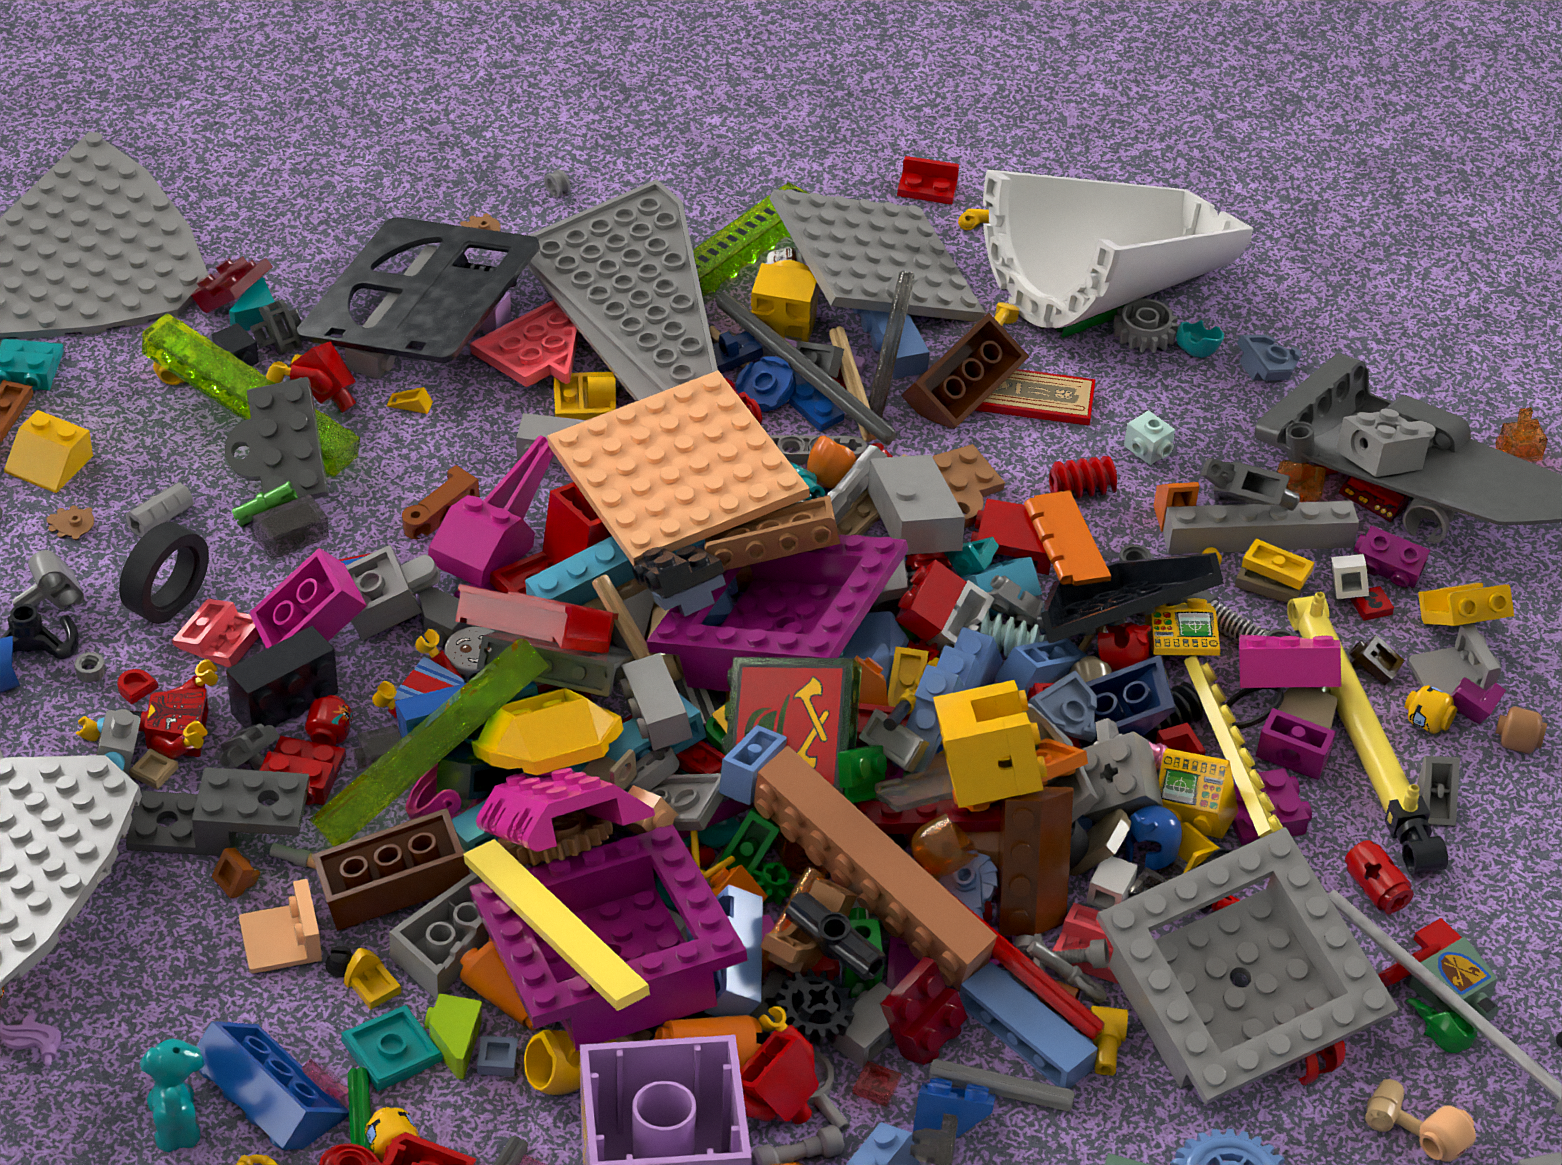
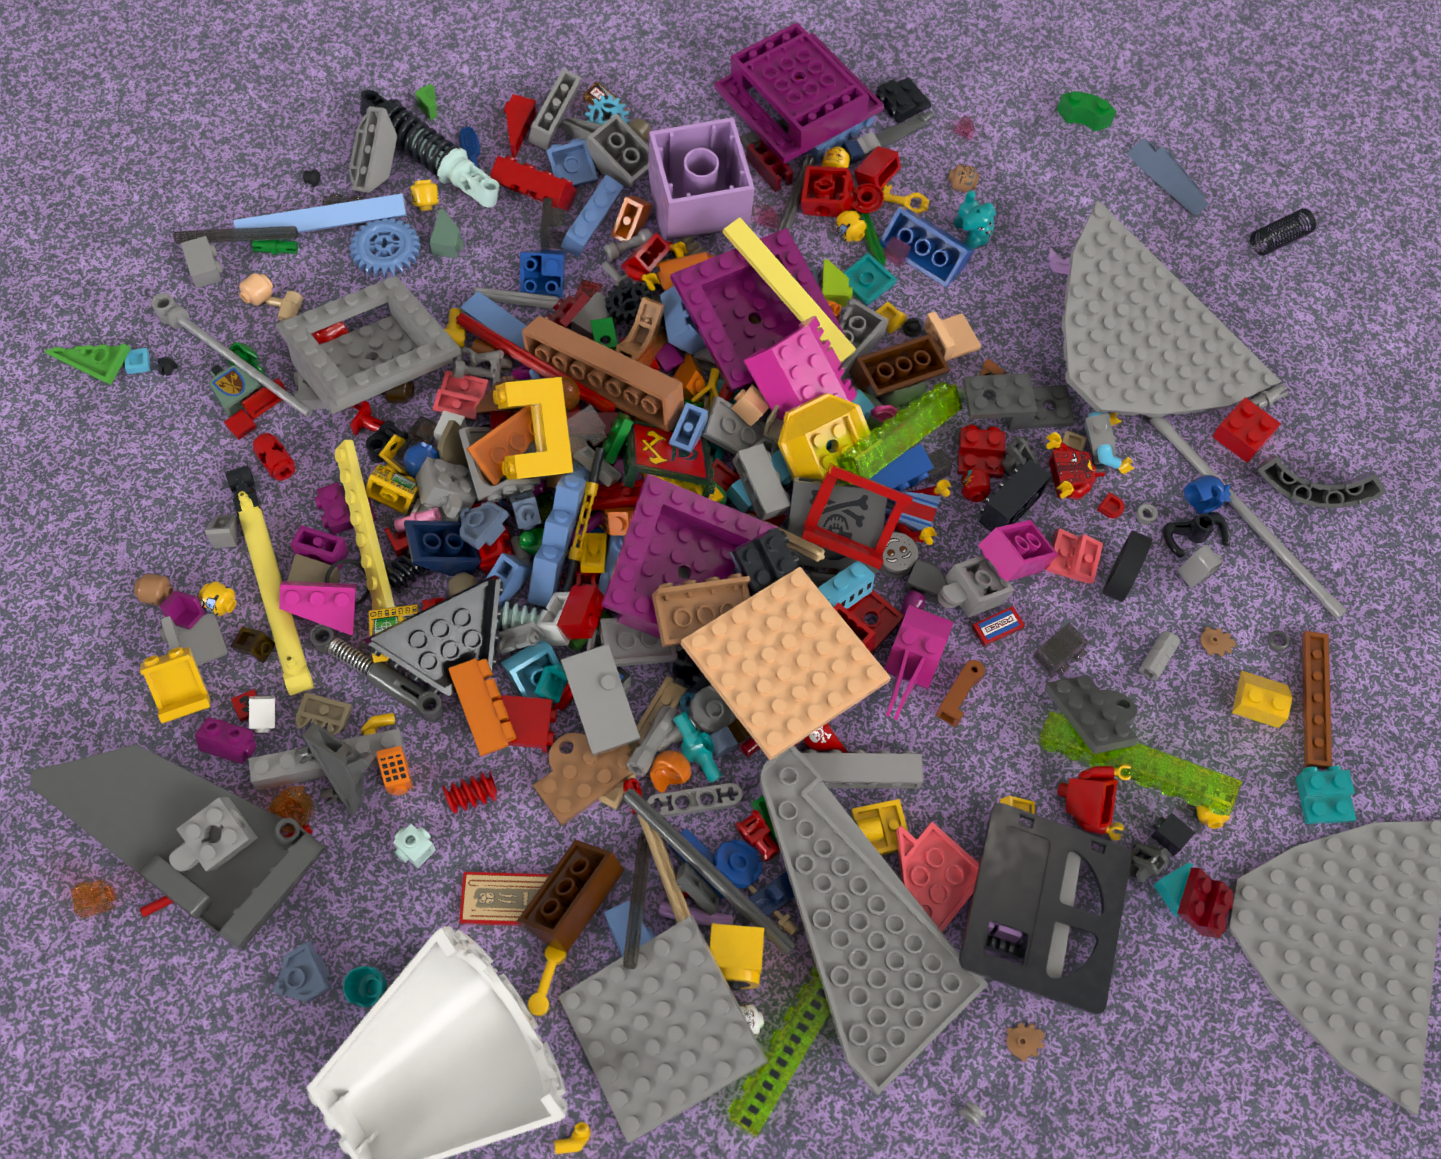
camera: 170 degrees right, 20 degrees up
(264, 502) = (1086, 665): bright green pin -> none
(849, 948) = (620, 320): black piece -> none
(1278, 564) = (318, 710): yellow plate -> none

